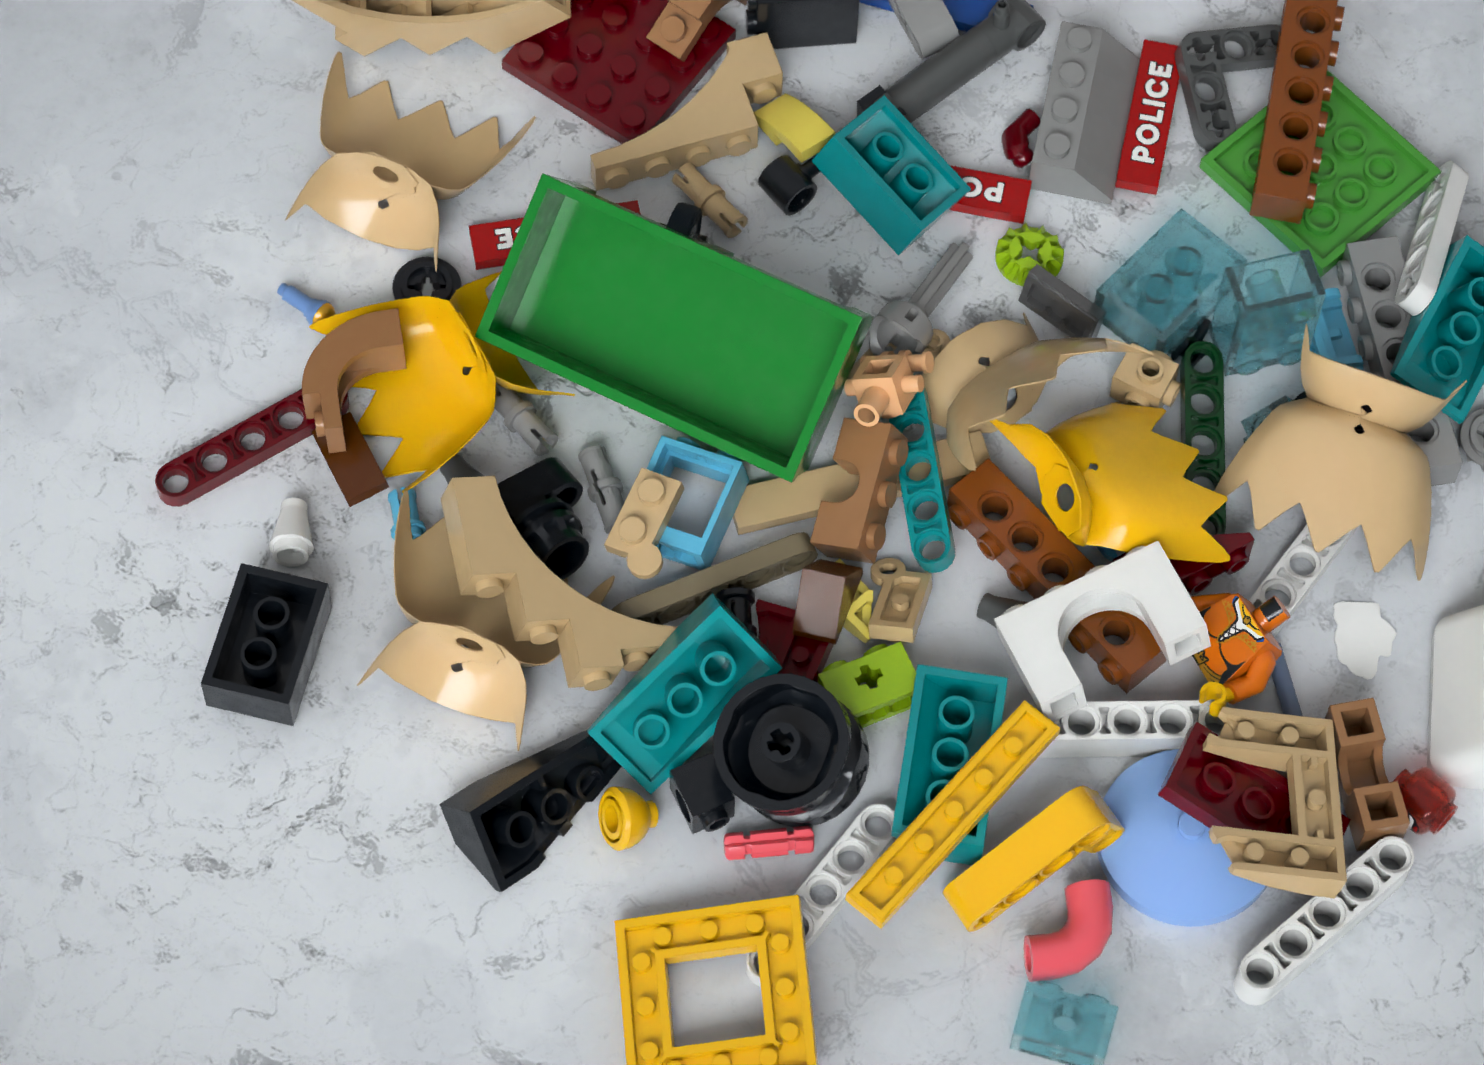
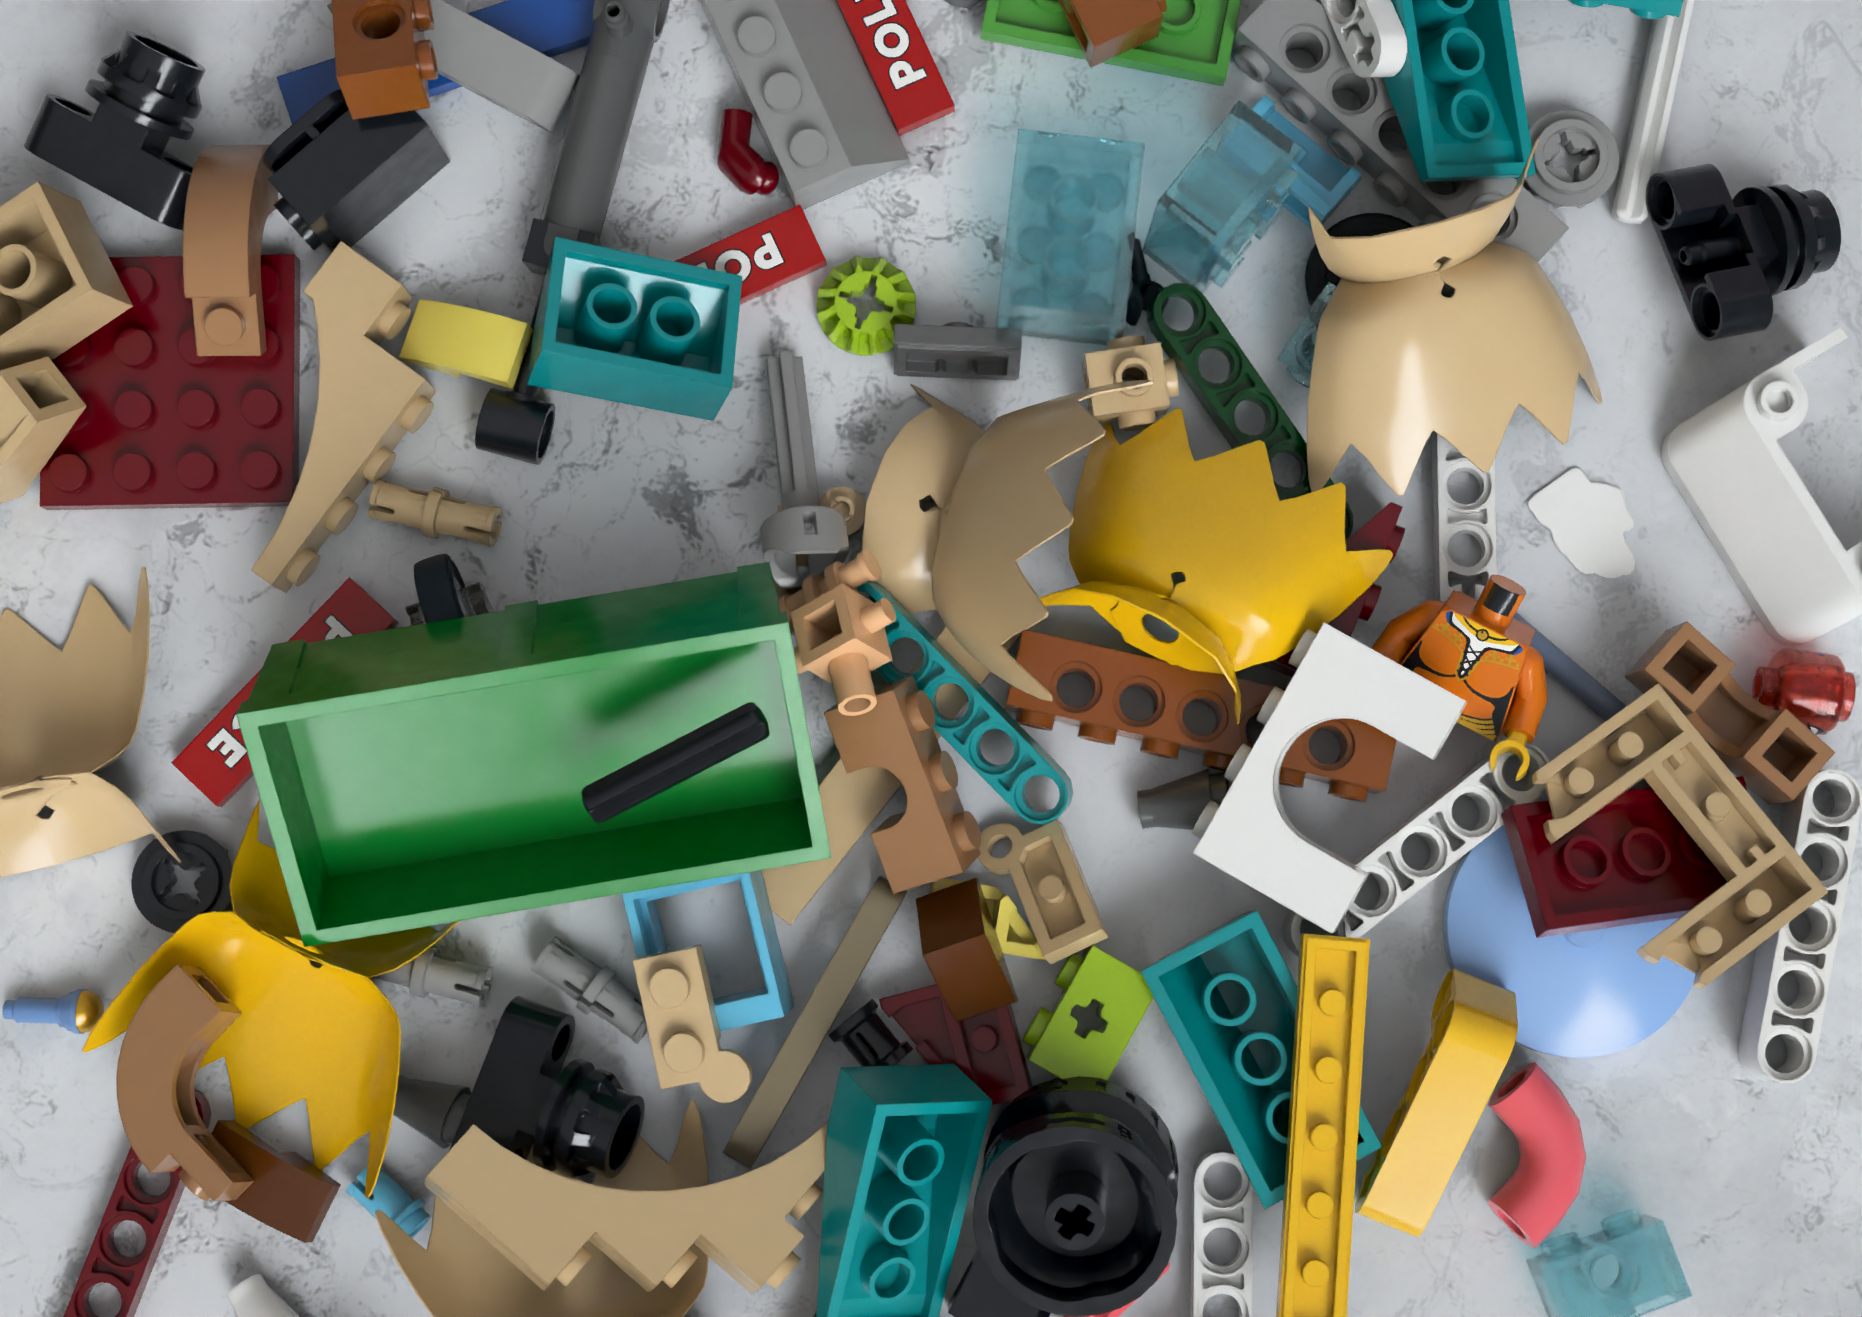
camera: 35 degrees left, 20 degrees up
(747, 361) = (675, 762): none -> black axle

